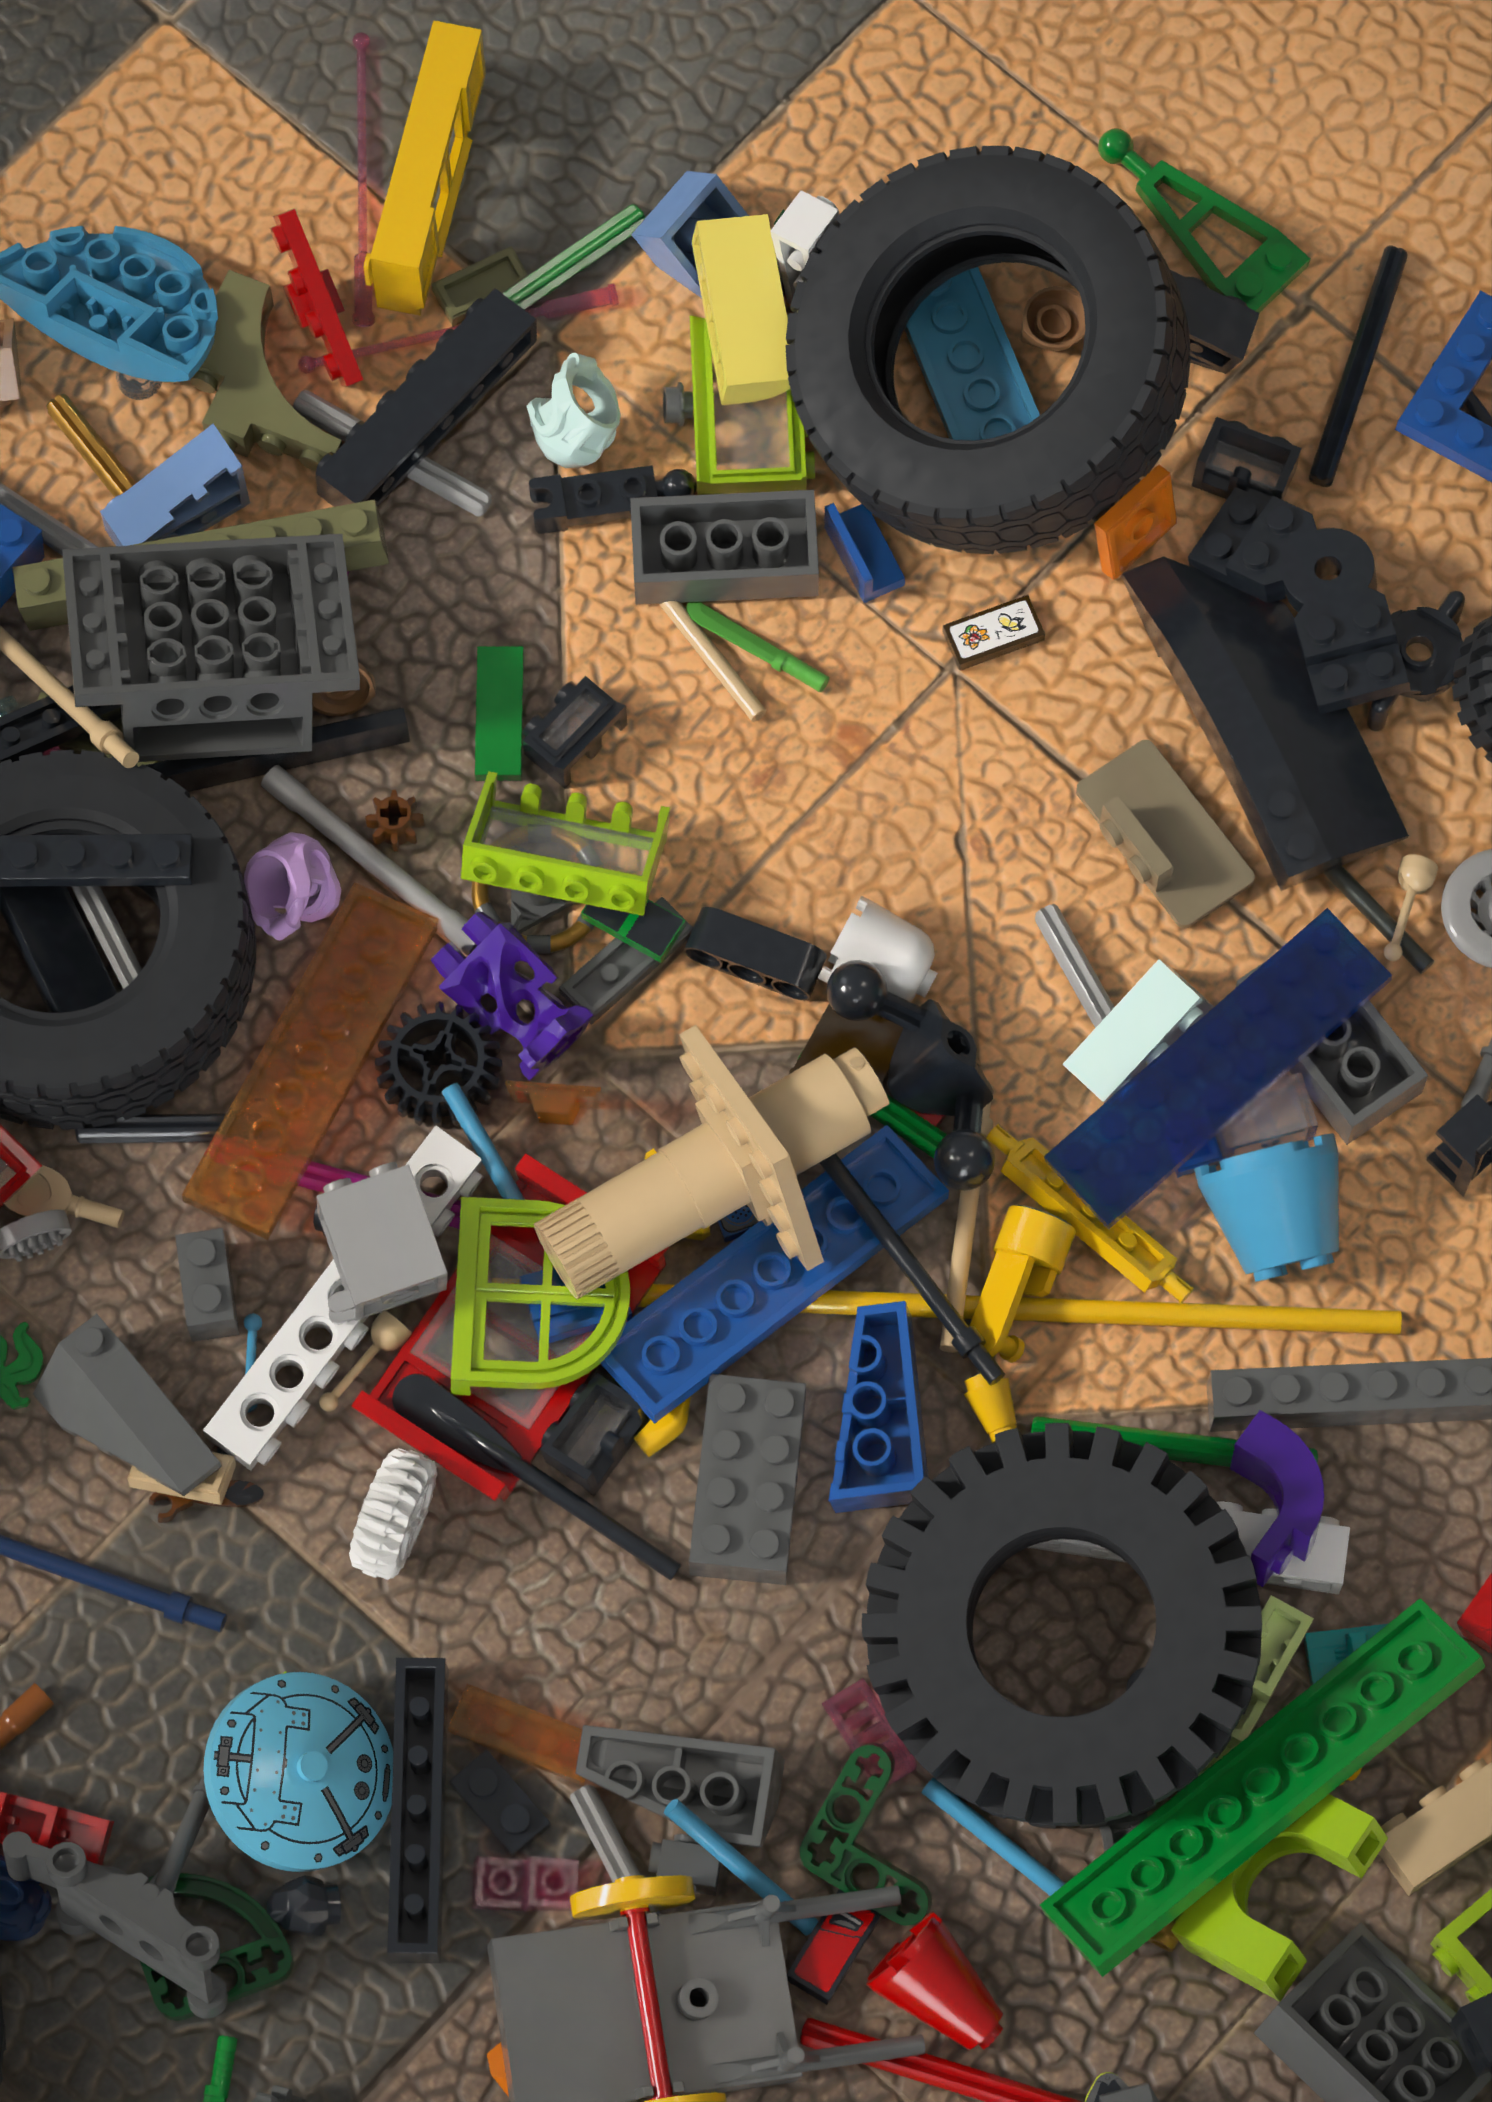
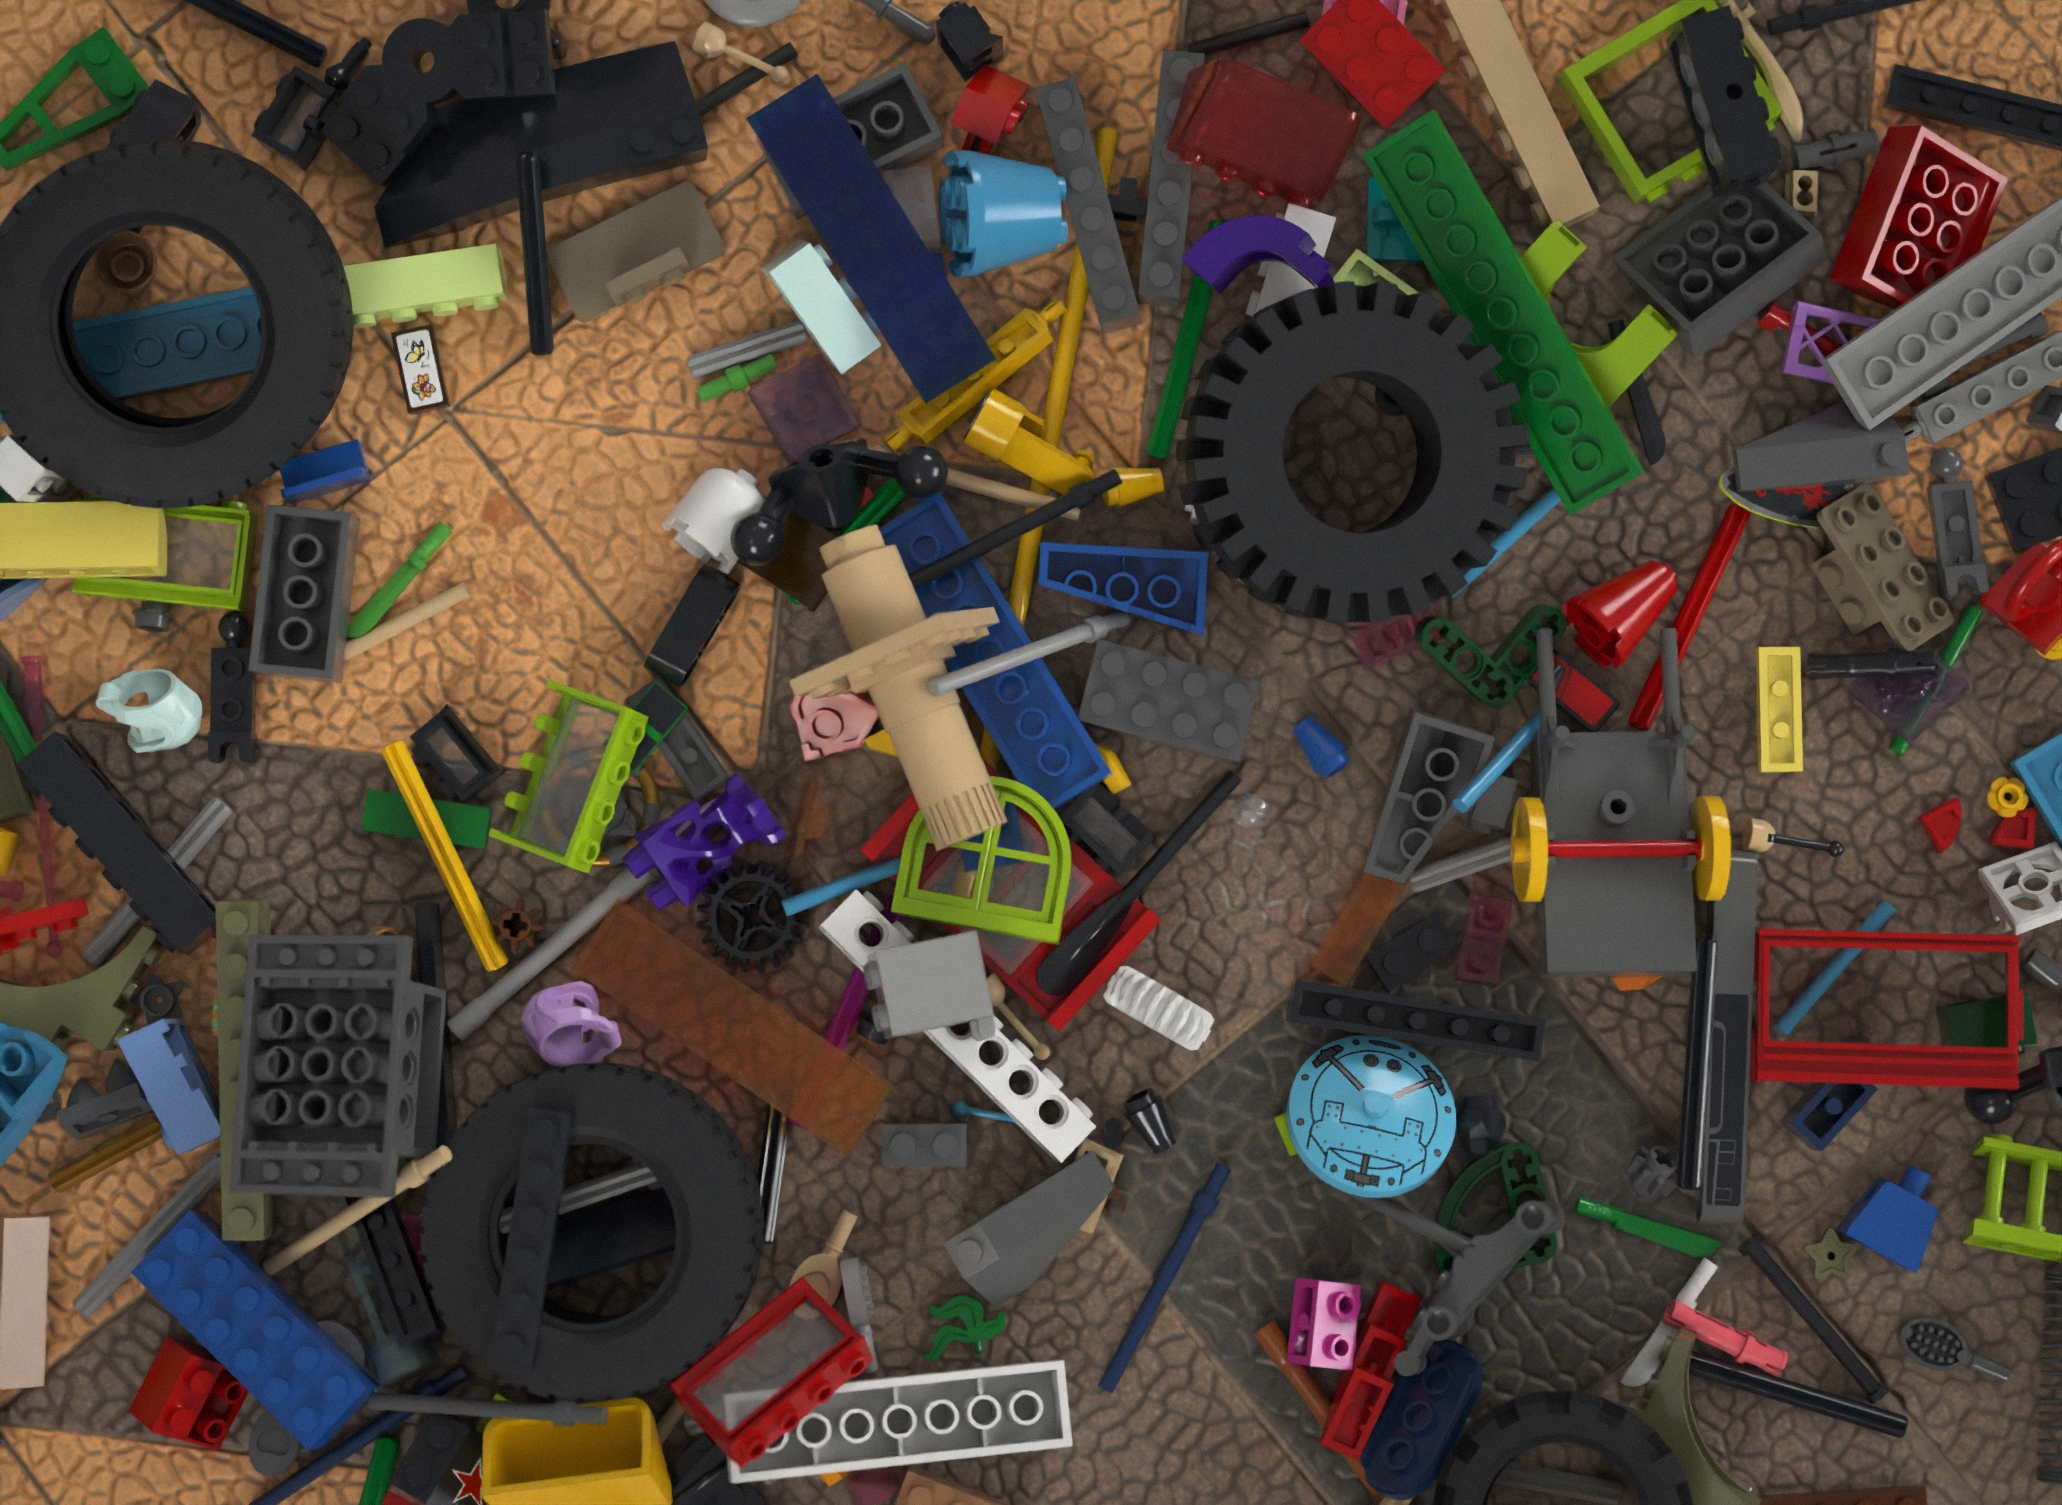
camera: 85 degrees left, 15 degrees up
(53, 1756) = (1324, 1324): none -> dark pink brick
(136, 428) = (90, 1112): none -> dark grey tile
(265, 1531) = (1149, 1118): none -> black cone
(267, 464) = (153, 989): none -> dark grey plate
(461, 732) = (444, 855): none -> yellow axle
(635, 1593) = (1251, 811): none -> clear plate
(663, 1110) = (832, 722): none -> plate
(721, 1663) = (1321, 748): none -> blue cone
(817, 1377) = (1088, 630): none -> light grey bar
(1020, 1033) = (804, 407): none -> hinge
(1042, 960) = (736, 377): none -> bright green bar
(1087, 621) = (427, 284): none -> yellowish green brick
(1136, 522) = (342, 223): orange tile -> none
(1137, 718) = (534, 253): none -> black axle
(1174, 1991) = (1644, 411): none -> black piece
(1304, 498) = (341, 74): none -> black piece
(1319, 1348) = (1126, 205): none -> black tile
(1364, 1279) = (1089, 205): none -> dark grey arch
(1394, 1177) = (990, 108): none -> red brick
(1420, 1479) = (1262, 132): none -> clear red windscreen

